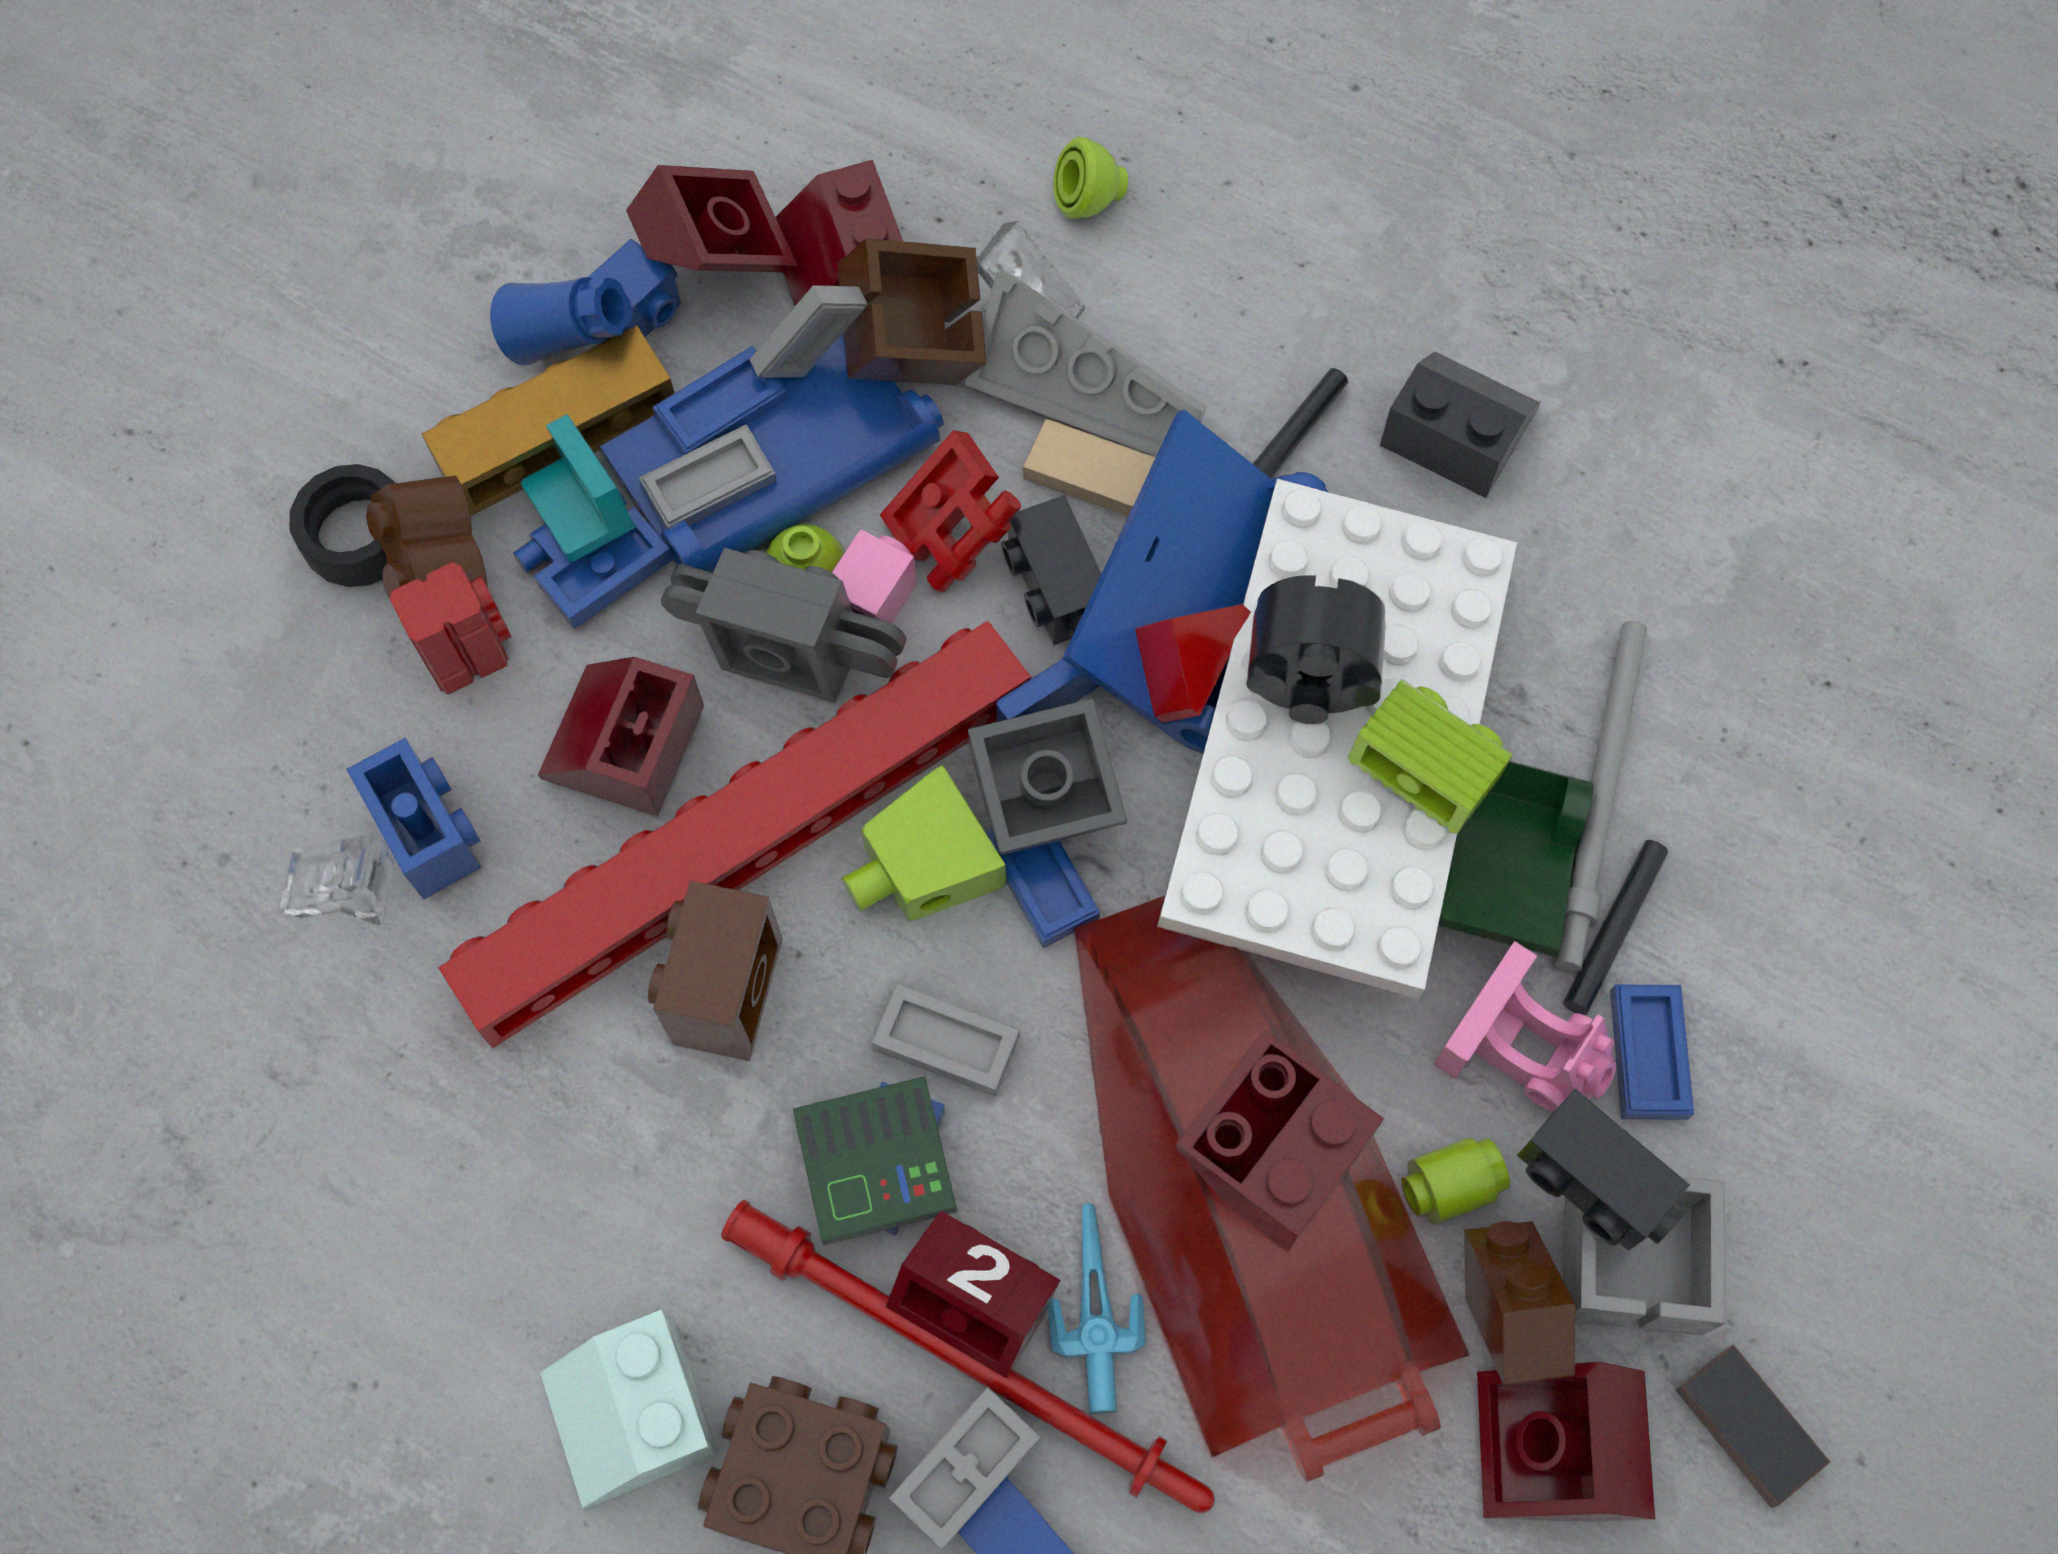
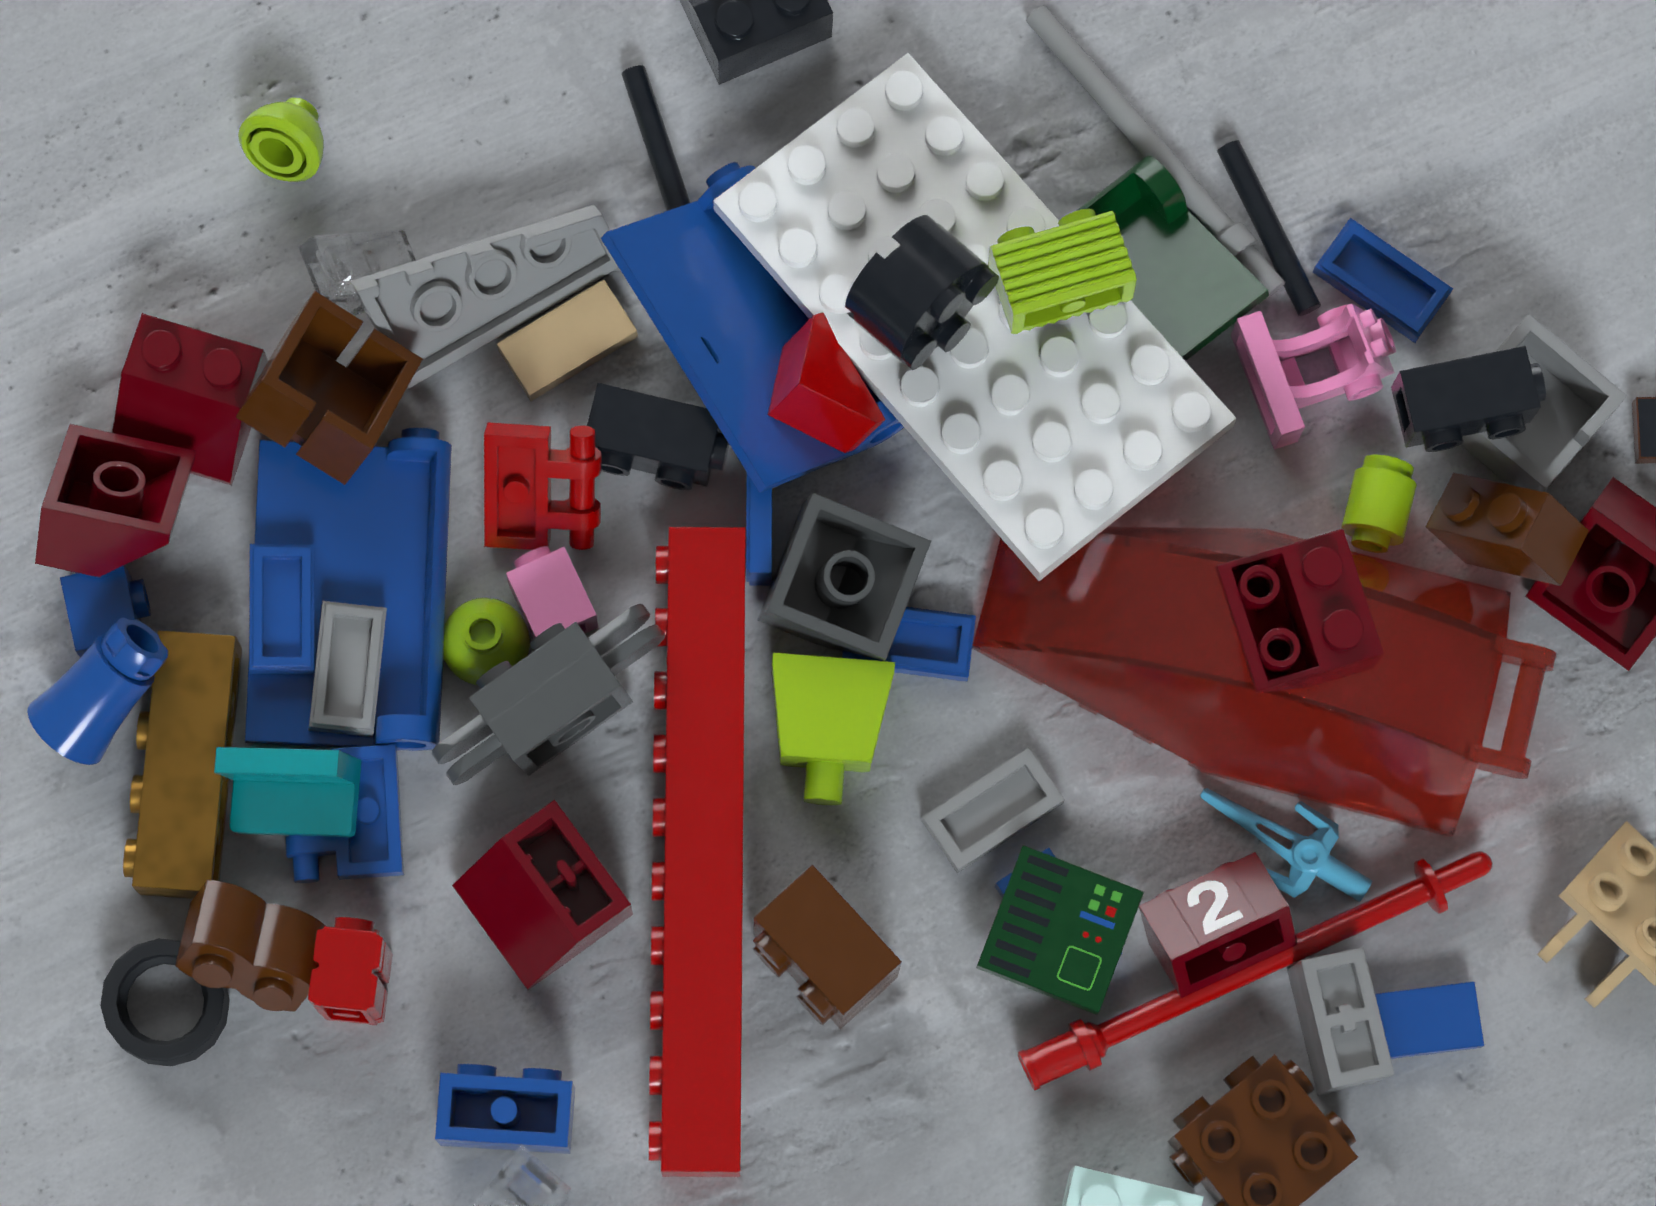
camera: 60 degrees left, 10 degrees up
(808, 331) = (294, 489): light grey tile -> none

